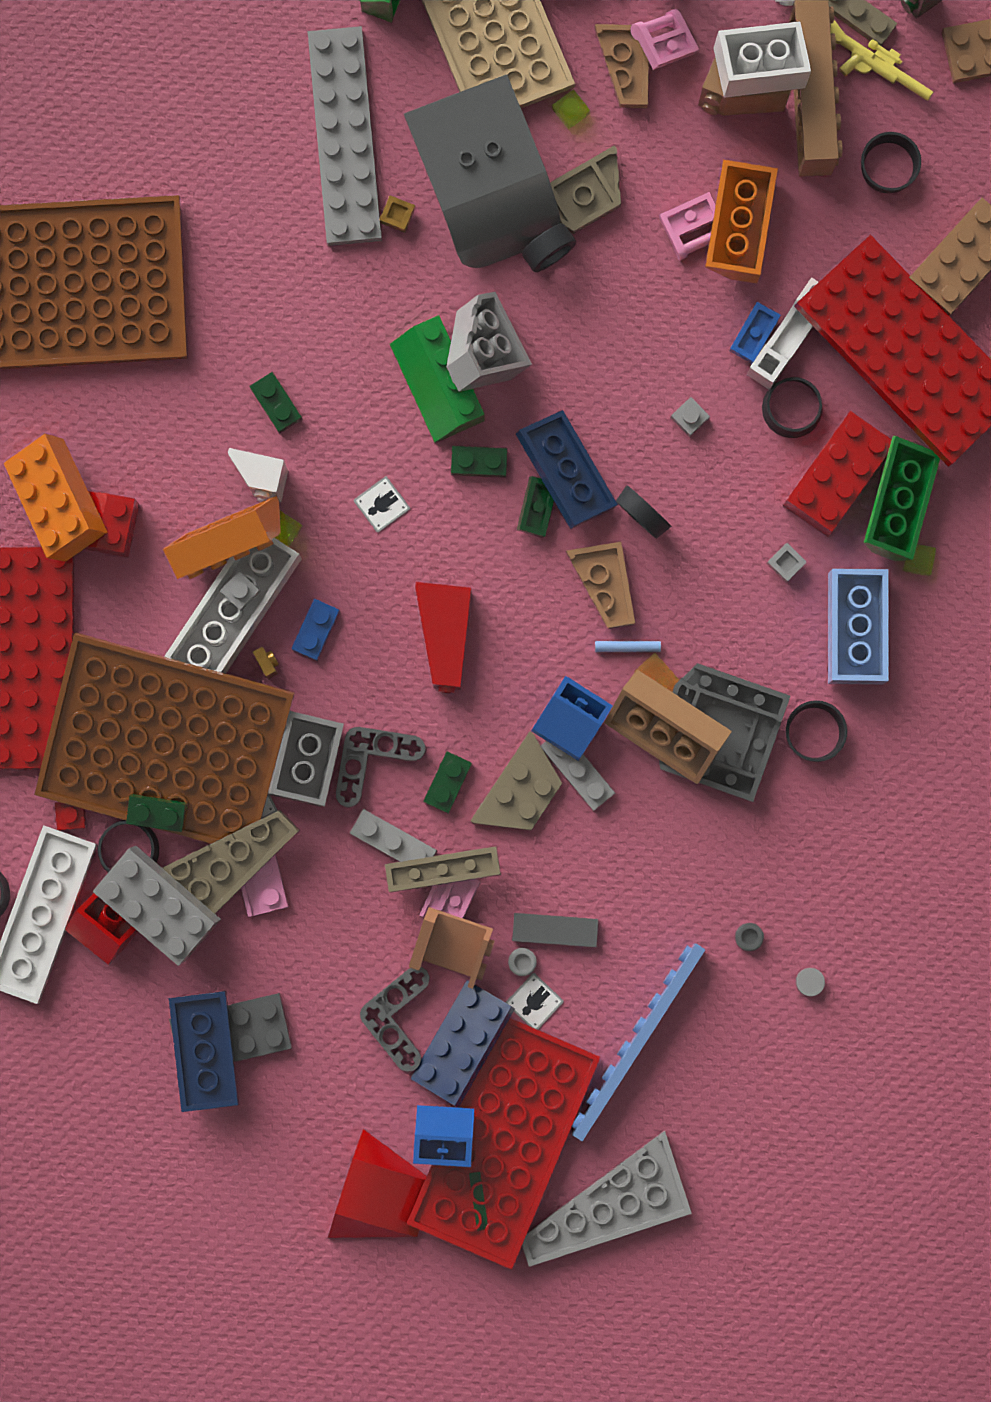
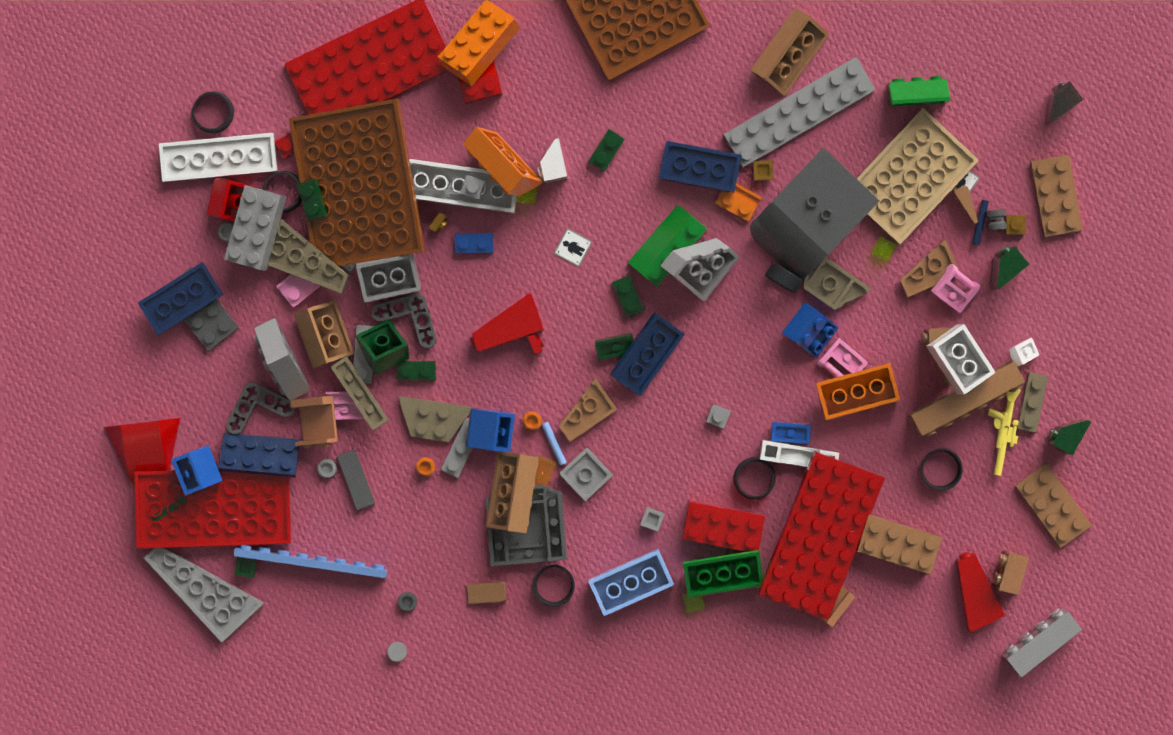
camera: 65 degrees right, 5 degrees up
(144, 950) = (225, 231): none -> light grey tile
(260, 110) = (790, 51): none -> medium nougat slope
(341, 882) = (324, 333): none -> medium nougat slope
(349, 955) = (280, 360): none -> light grey brick
(354, 290) = (700, 167): none -> dark blue plate
(395, 809) = (383, 347): none -> dark green slope
(421, 264) = (740, 203): none -> orange plate
(485, 608) = (536, 343): none -> red plate
(534, 1001) = (306, 487): sticker -> none
(580, 829) = (425, 466): none -> orange plate
(584, 660) = (532, 420): none -> orange plate
(604, 1133) = (245, 567): none -> dark green plate
(632, 247) = (810, 330): none -> blue slope
(642, 512) = (640, 414): black tyre -> none
(687, 622) = (586, 474): none -> light grey plate
(785, 825) = (486, 592): none -> medium nougat slope

